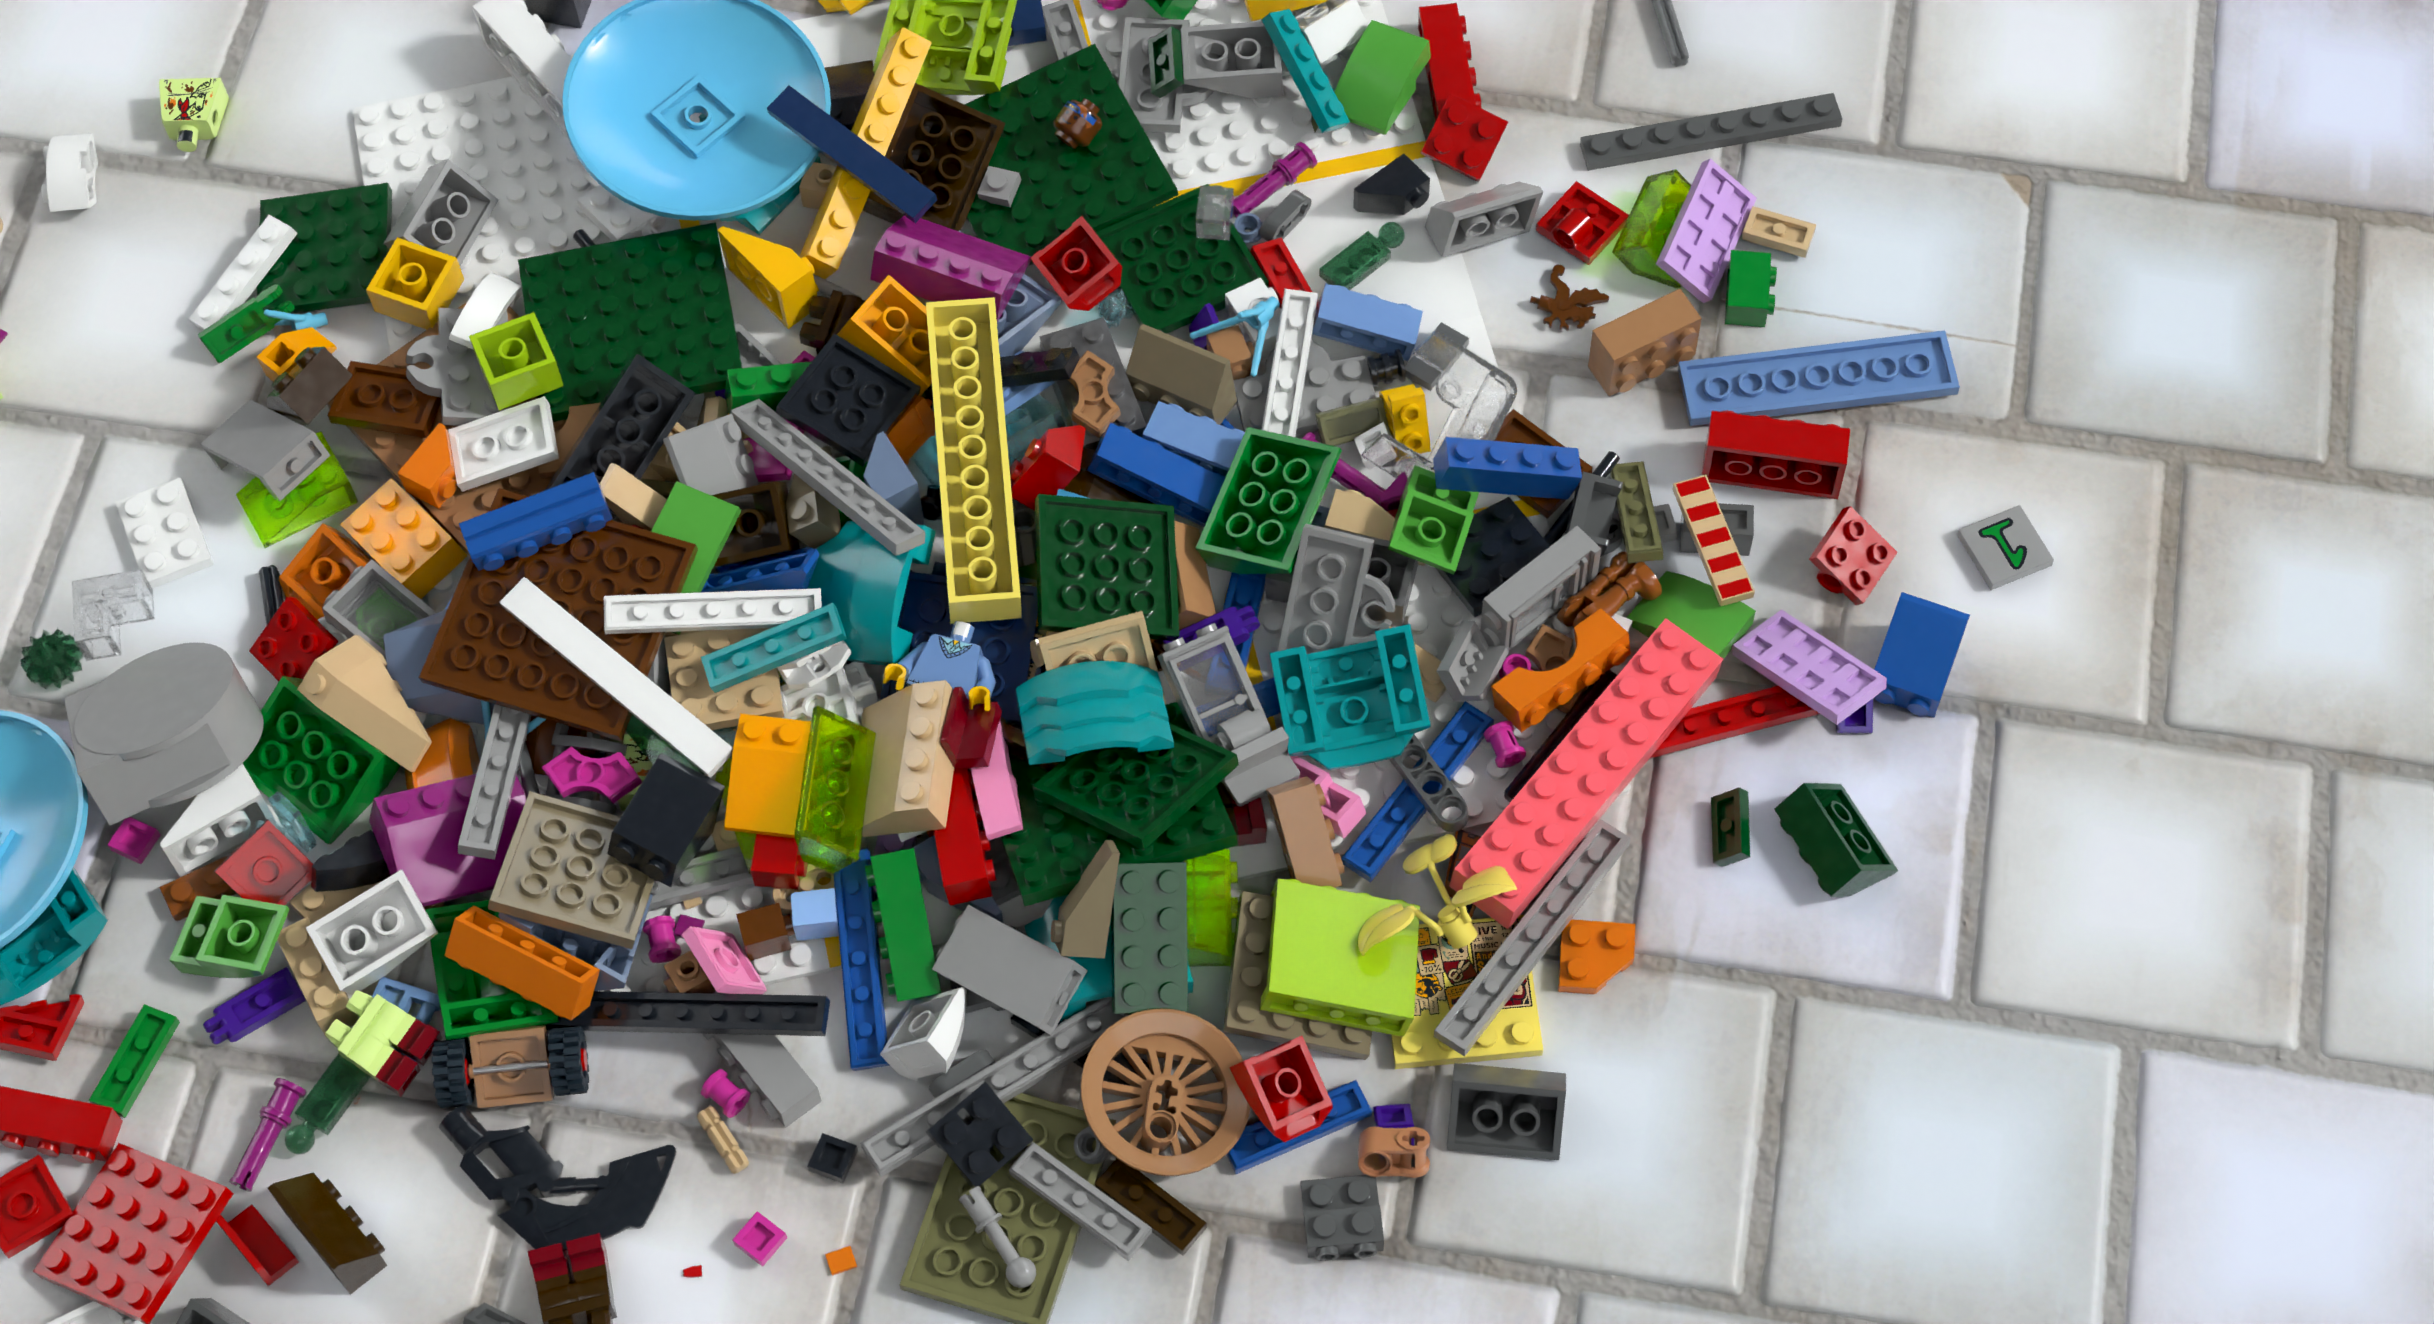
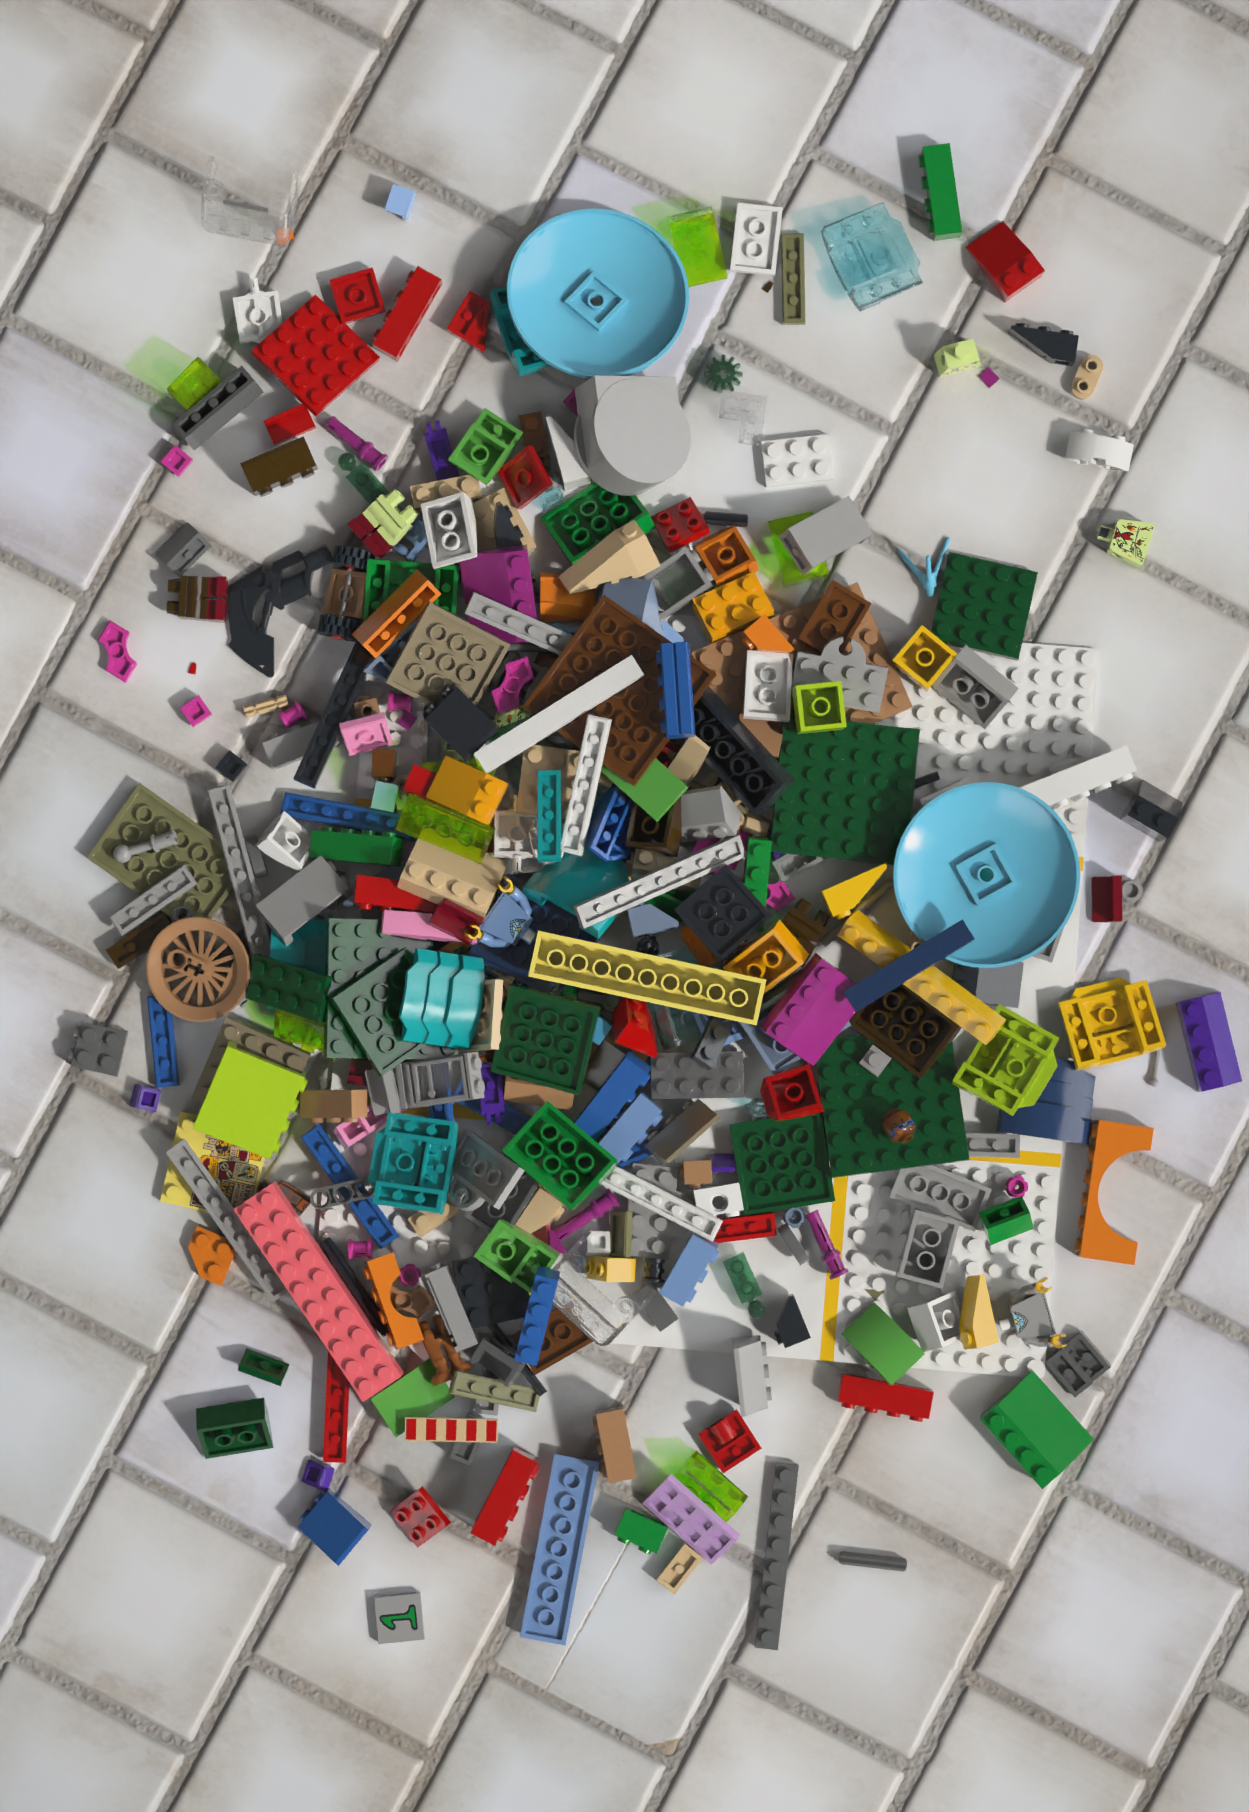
camera: 105 degrees right, 25 degrees up
(135, 1060) = (429, 375): green plate -> none
(243, 325) = (936, 543): green hinge -> none
(244, 272) = (976, 548): white plate -> none
(282, 351) = (900, 570): light orange slope -> none
(308, 385) = (856, 571): dark brown slope -> none
(485, 307) = (879, 700): white slope -> none
(841, 1260) = (171, 754): orange window -> none
(972, 1141) = (211, 857): black brick -> none
(1087, 909) = (311, 955): dark tan slope -> none
(1094, 406) = (671, 1069): medium nougat tile -> none
(1165, 62) = (937, 1202): dark green plate -> none
(1214, 212) = (804, 1196): clear brick -> none
(1241, 729) = (407, 1087): light grey brick -> none
(1257, 318) = (709, 1196): medium azure plant -> none
(1284, 1089) = (180, 1037): red slope -> none
(1305, 70) = (899, 1294): teal plate -> none
(1390, 1152) = (125, 1088): nougat piece -> none
(1452, 921) = (245, 1193): light yellow plant -> none
(1464, 137) = (818, 1385): red plate -> none
(1470, 664) = (417, 1247): light grey bracket -> none
(1506, 1111) = (129, 1166): dark grey slope -> none
(1566, 307) = (671, 1405): reddish brown piece -> none
(1809, 666) = (349, 1456): lavender plate -> none

